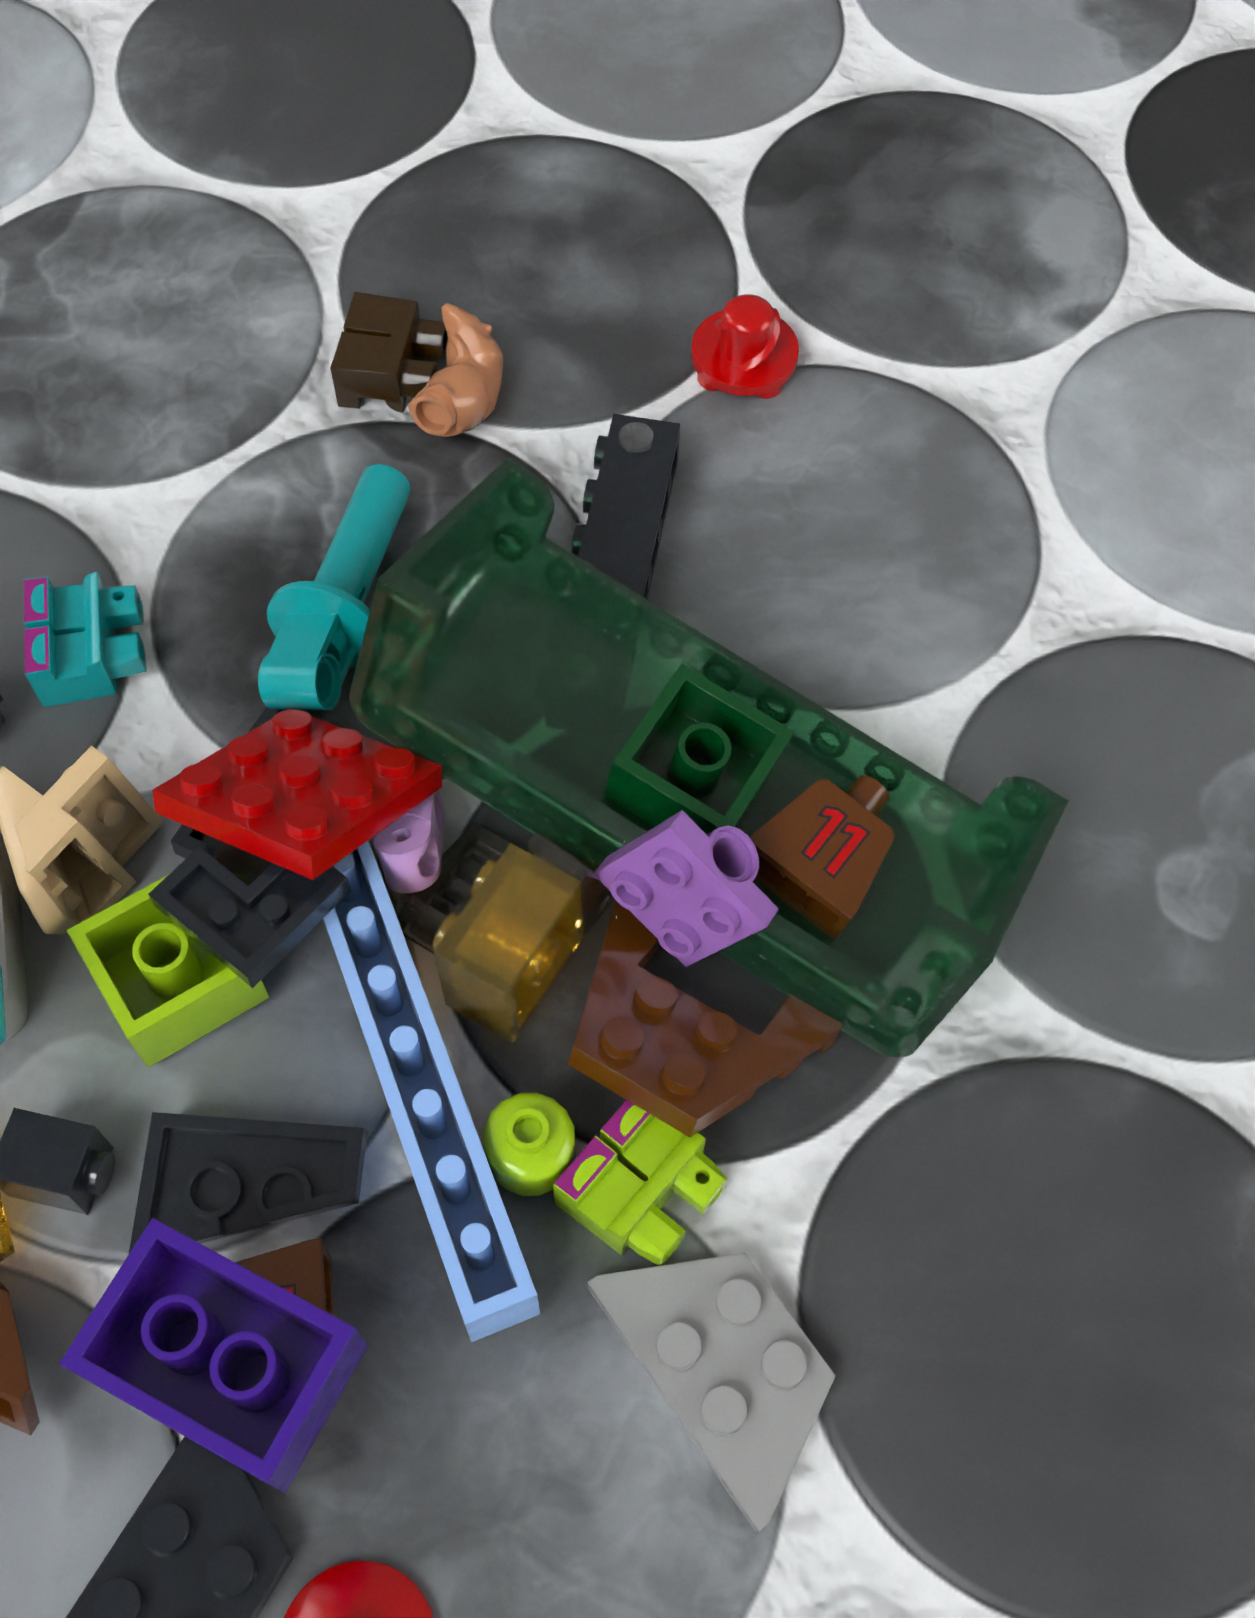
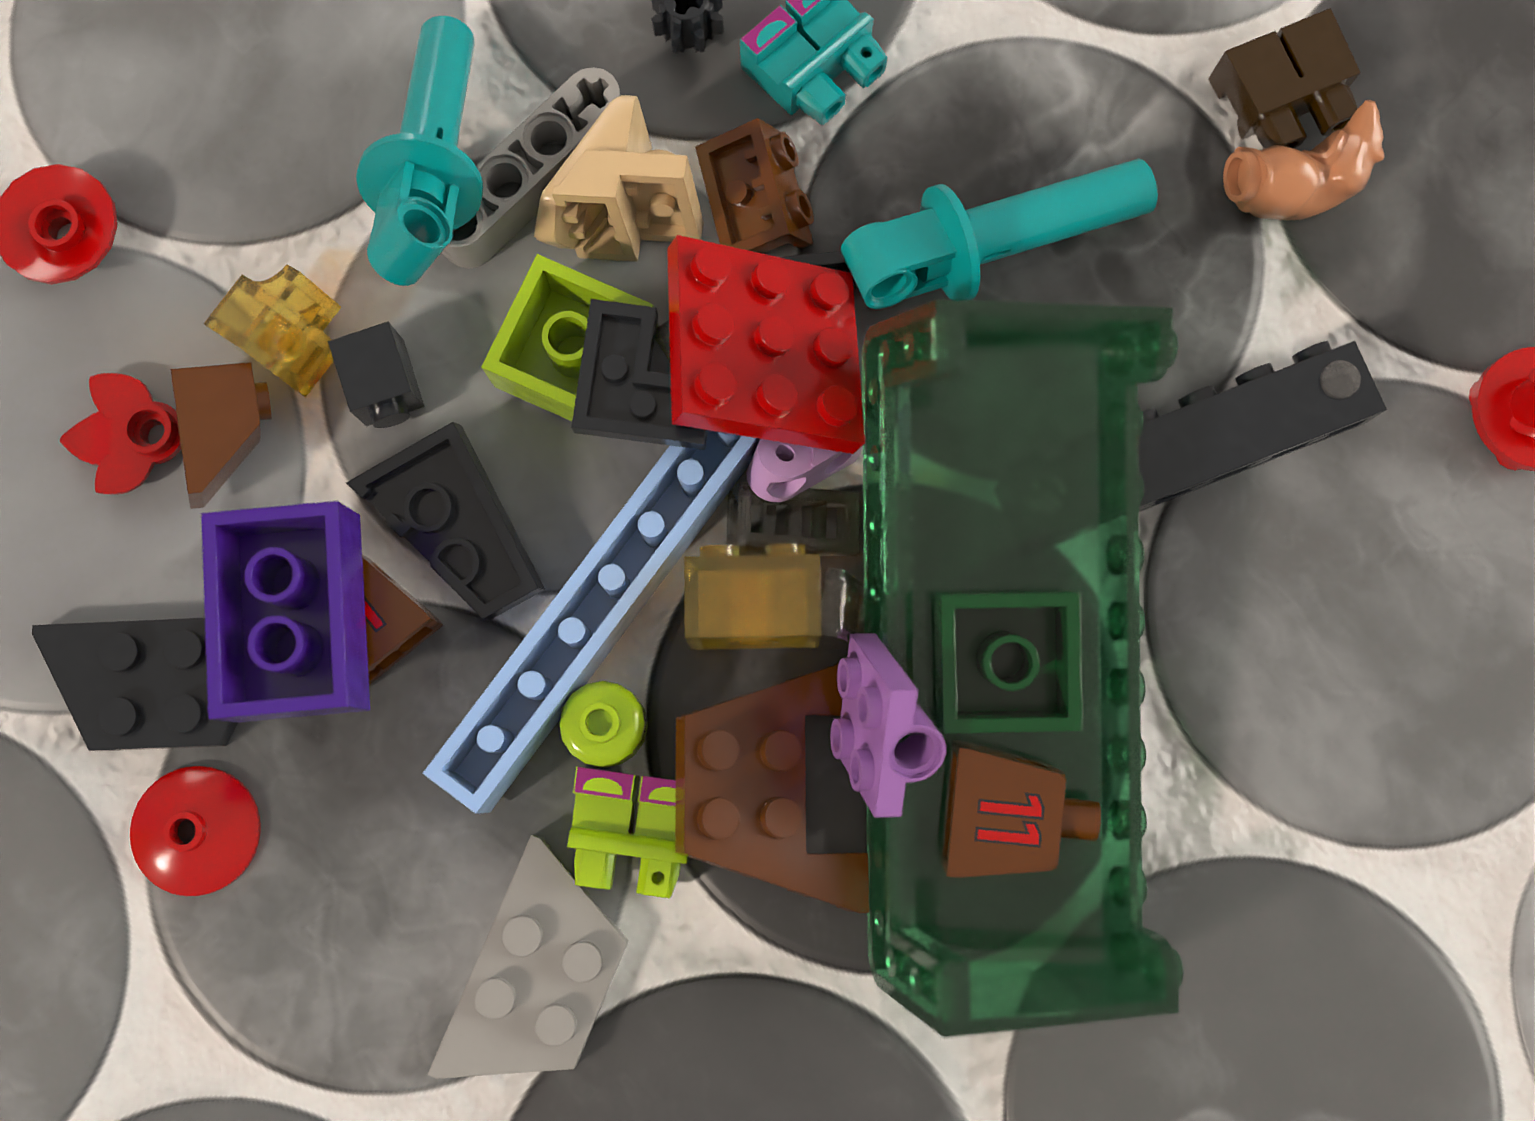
camera: 60 degrees right, 20 degrees up
(151, 746) = (755, 188): none -> reddish brown bracket

